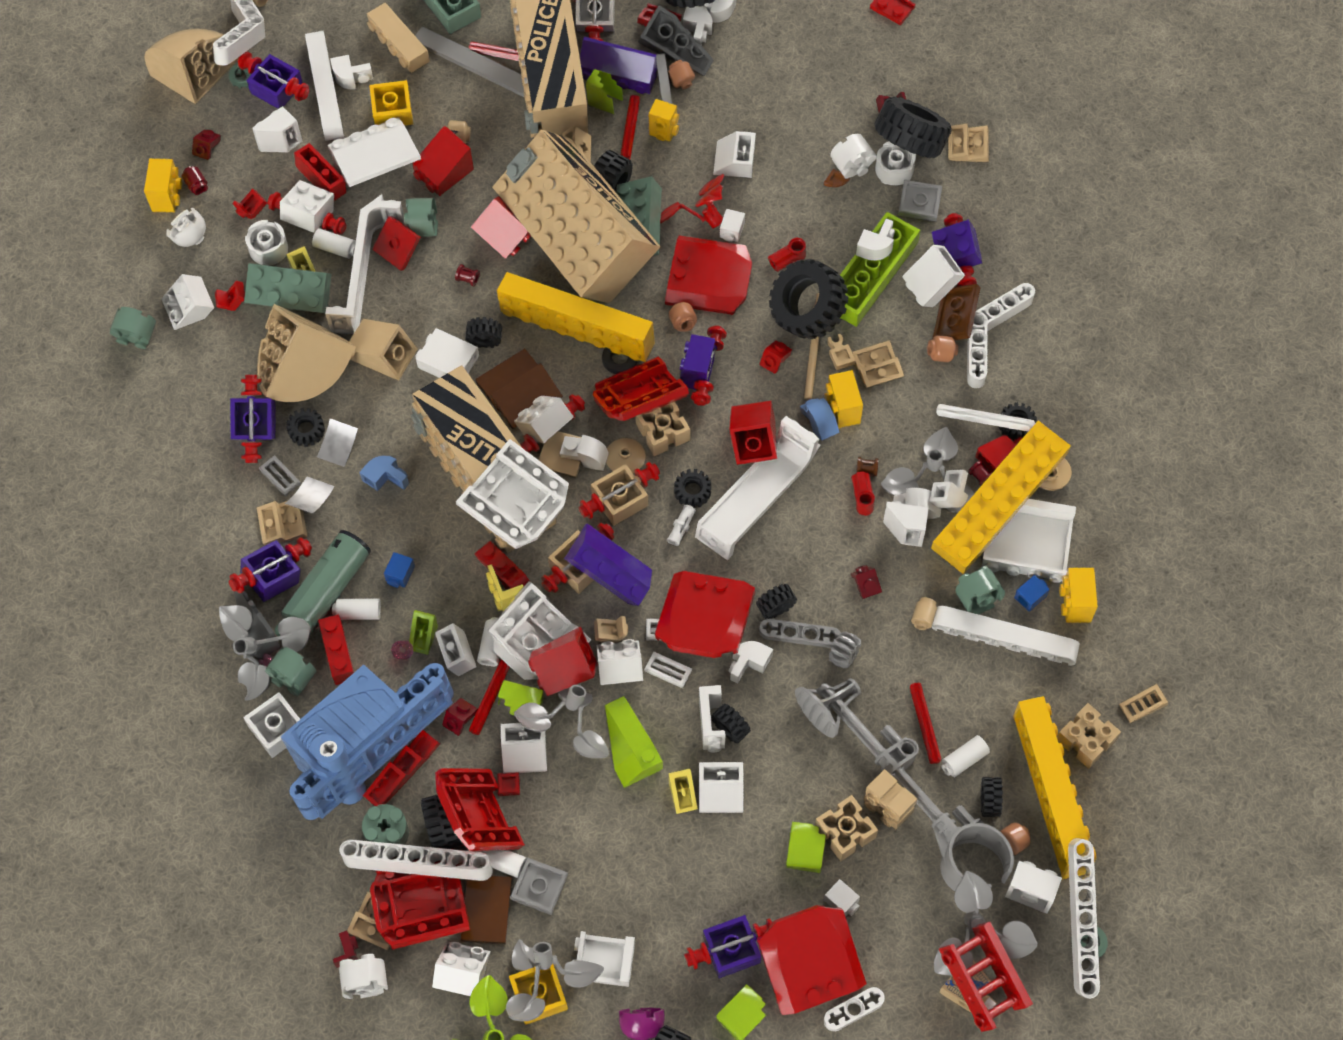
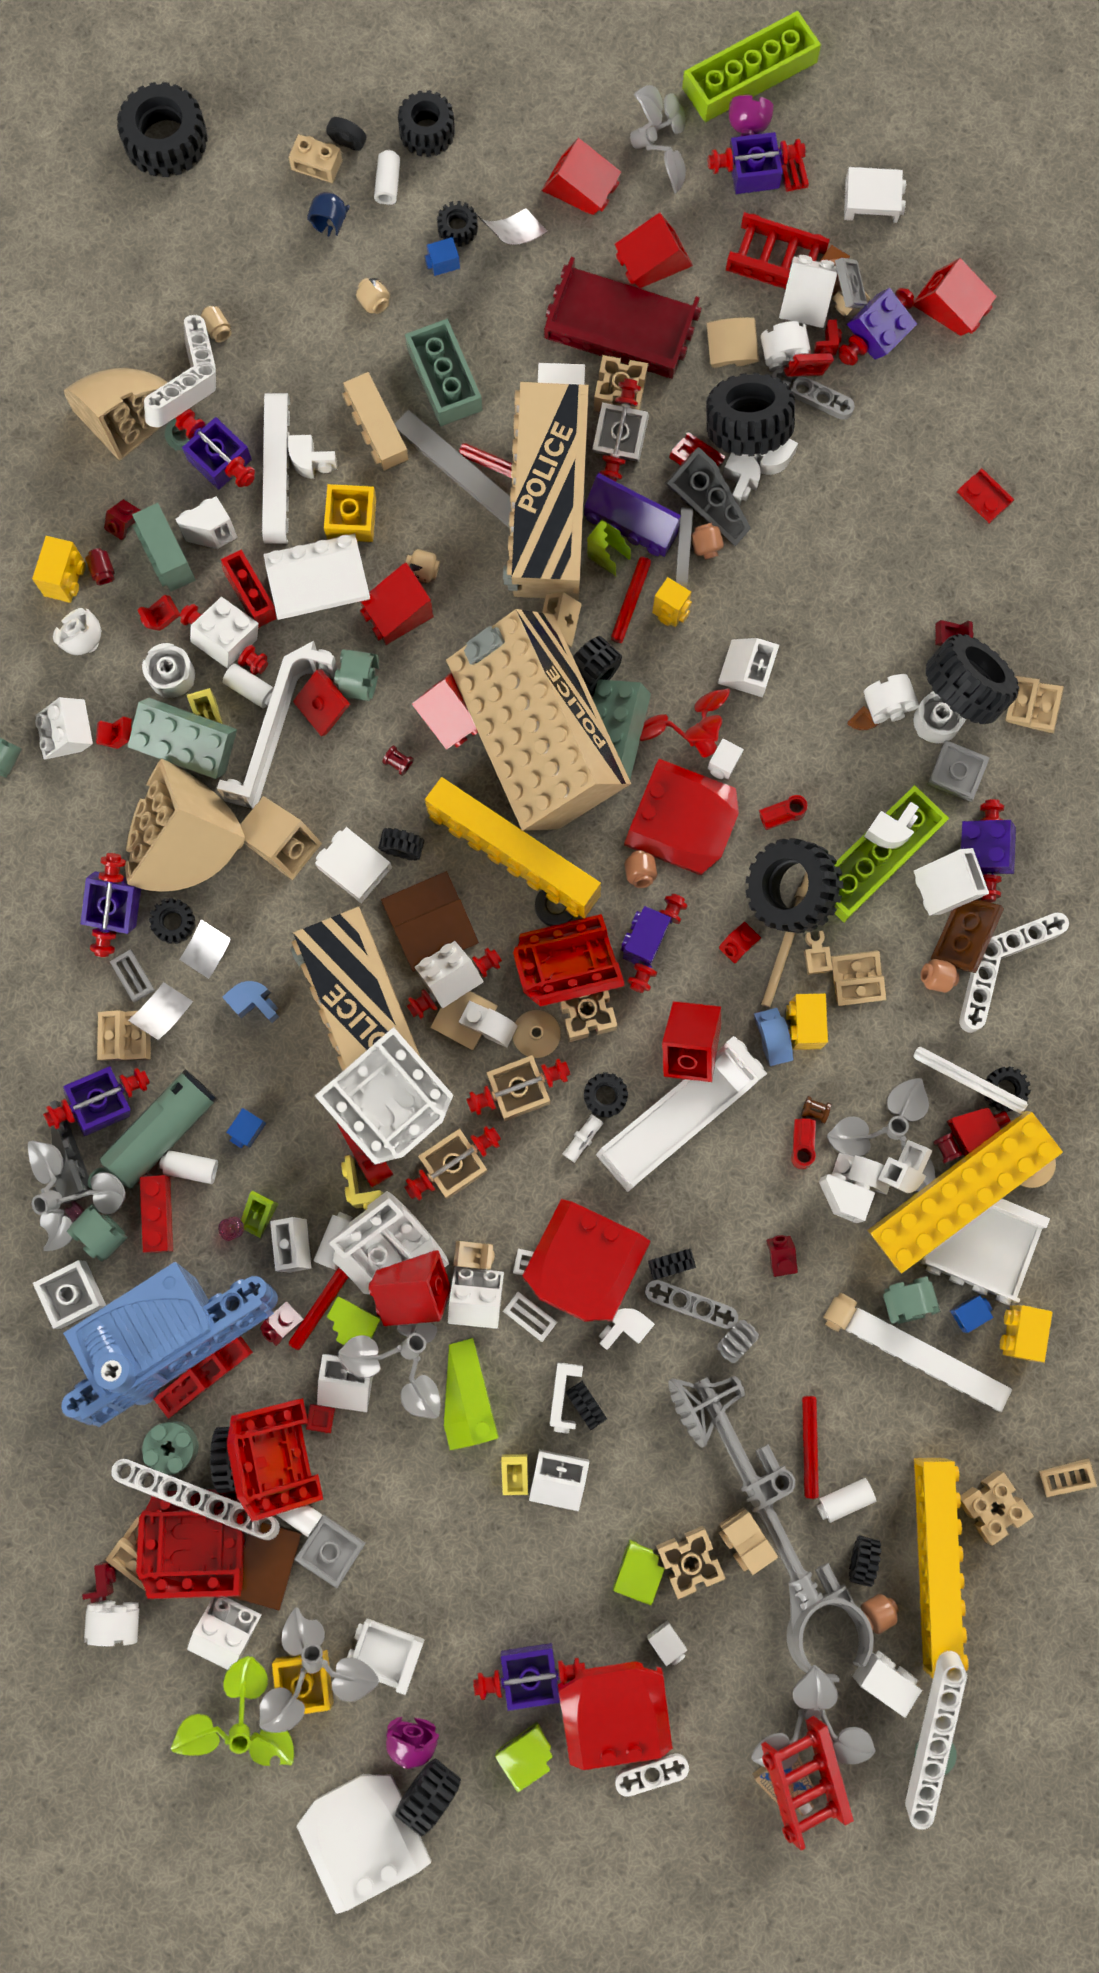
camera: 10 degrees right, 15 degrees up
(245, 155) = (162, 548): none -> sand green brick
(610, 566) = (487, 1183): dark purple slope -> none

